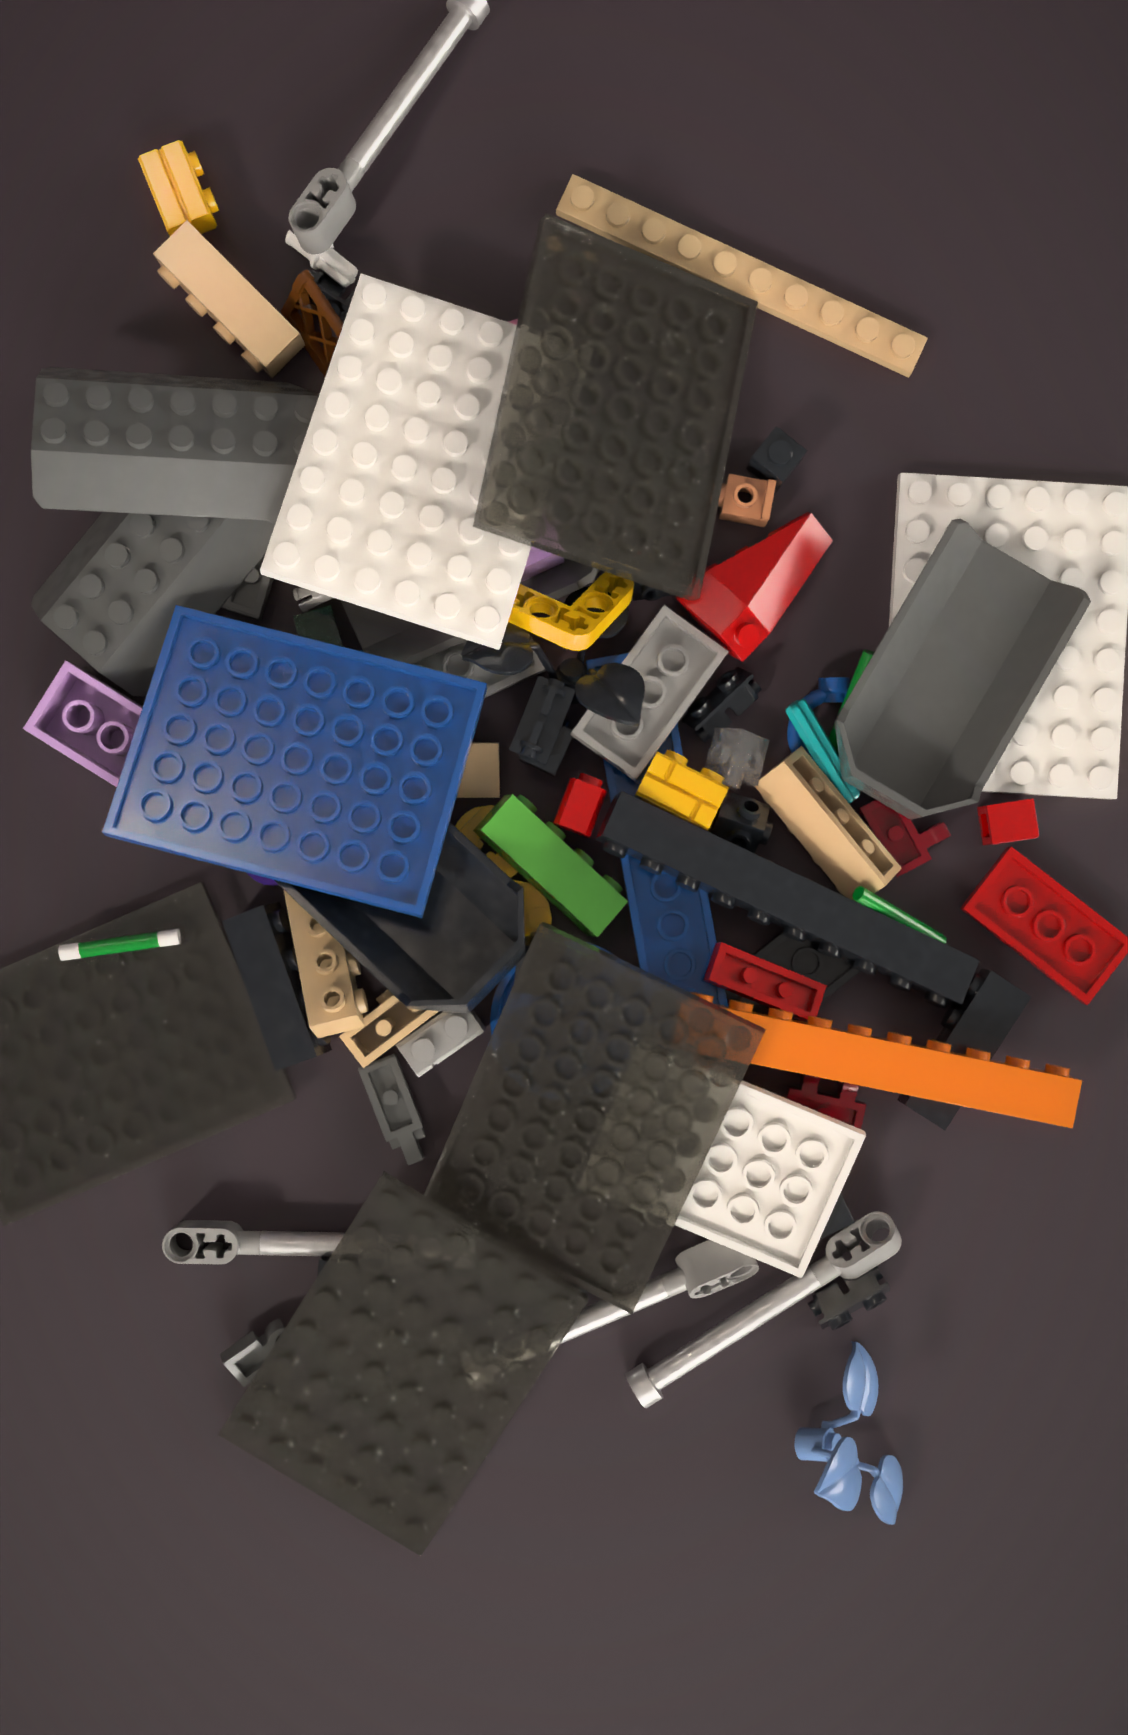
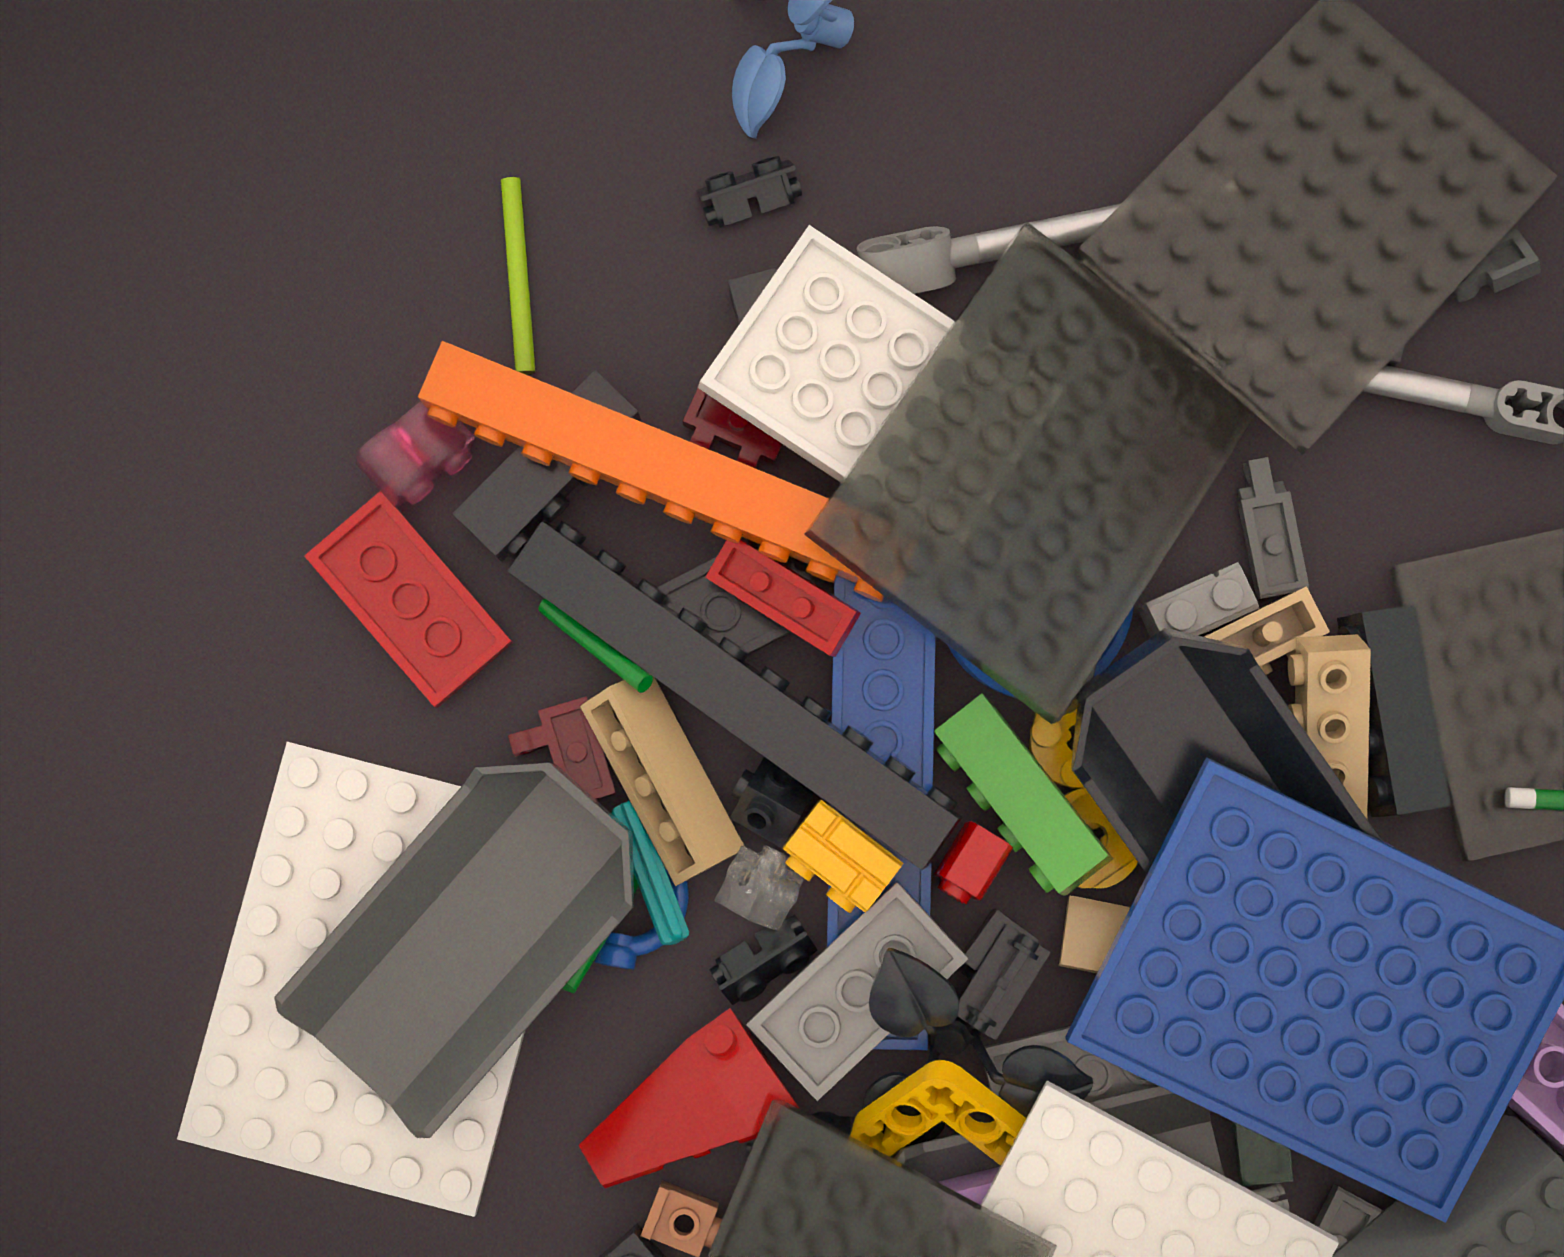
camera: 170 degrees left, 5 degrees down
(649, 1381) = (1017, 137): flat silver piece -> none
(1008, 822) = (431, 738): red panel -> none
(1015, 1195) = (518, 275): none -> lime bar
(1069, 1037) = (412, 454): none -> clear pink brick

